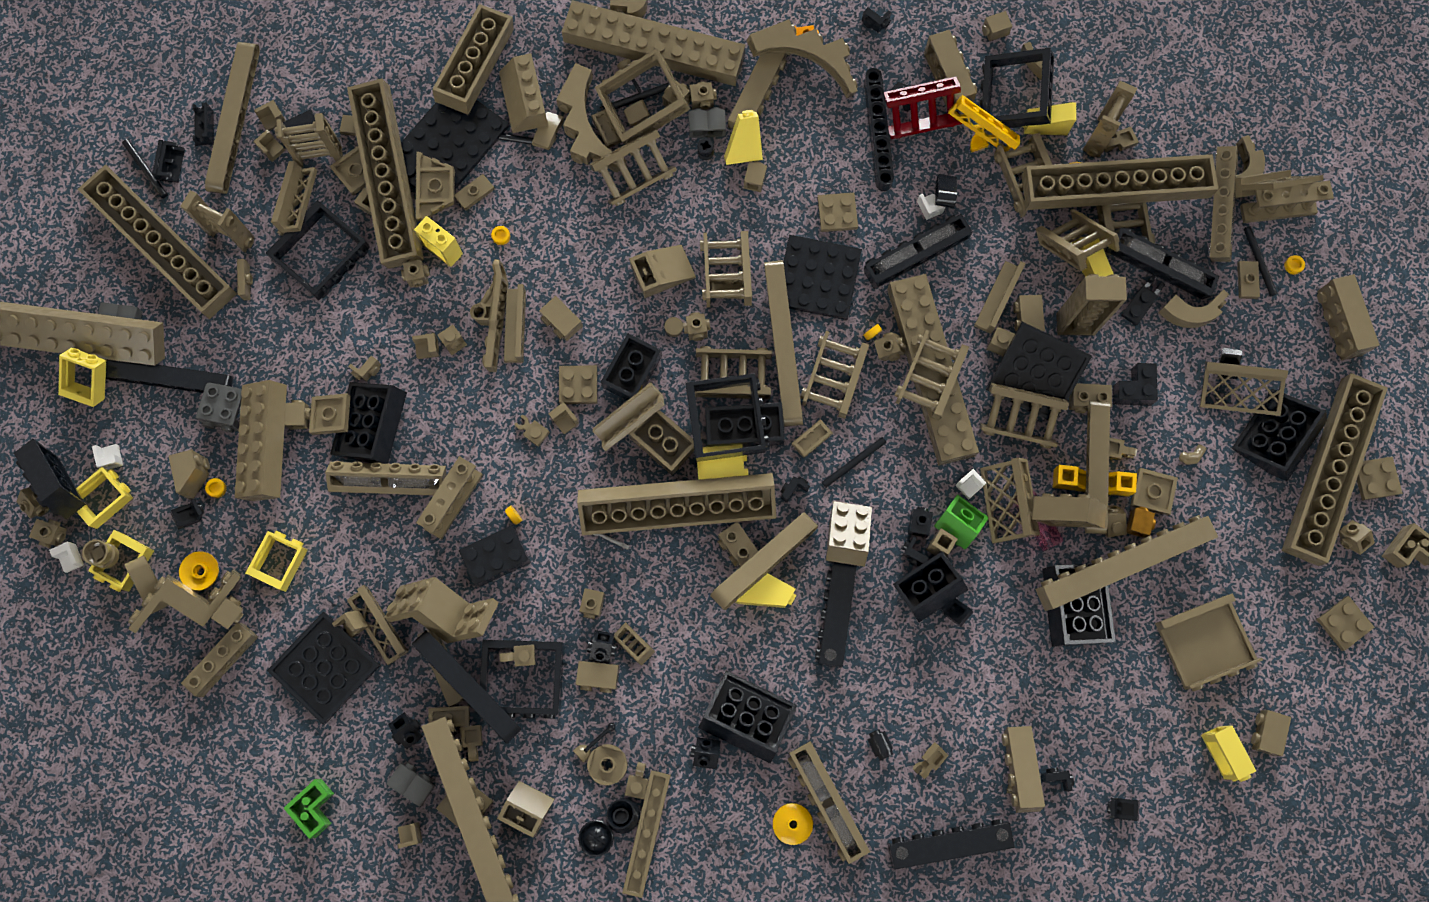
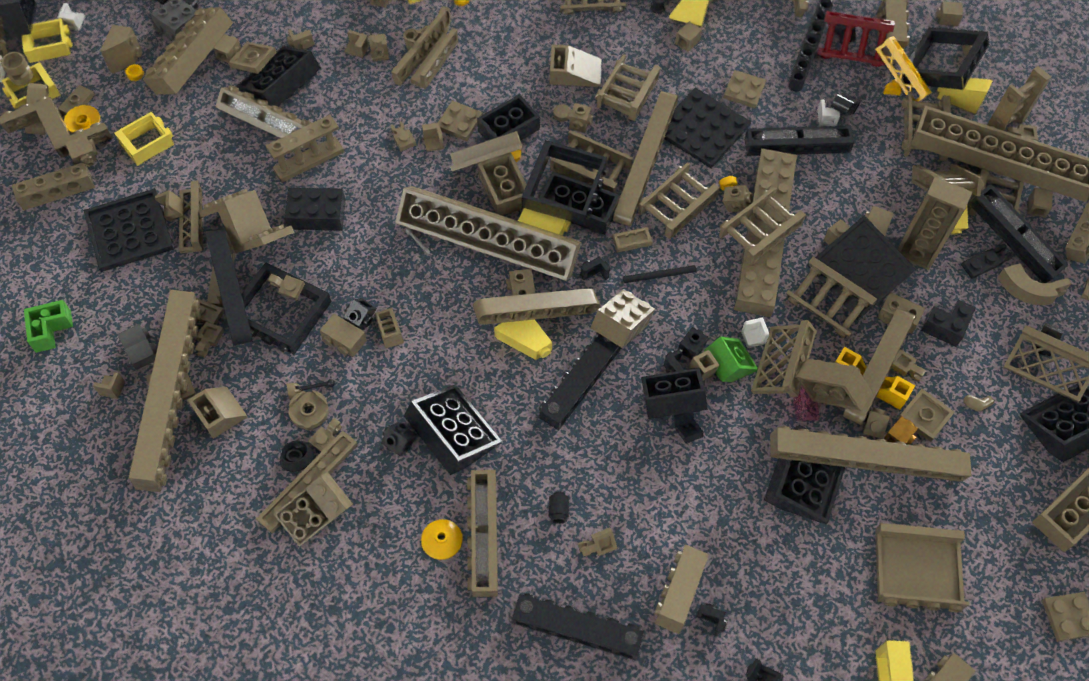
camera: 25 degrees right, 15 degrees down
(176, 550) = (78, 97): none -> dark tan plate
(187, 514) = (101, 79): black bracket -> none
(405, 730) = (157, 302): black brick -> none
(513, 515) = (349, 187): yellow tile -> none
(560, 318) = (473, 68): dark tan brick -> none
(592, 603) = (372, 279): dark tan brick -> none
(595, 838) = (261, 463): black hat -> none
(669, 858) = (313, 509): none -> dark tan slope
(999, 296) = (856, 202): dark tan fence -> none
(1166, 214) = (1040, 202): none -> dark tan brick

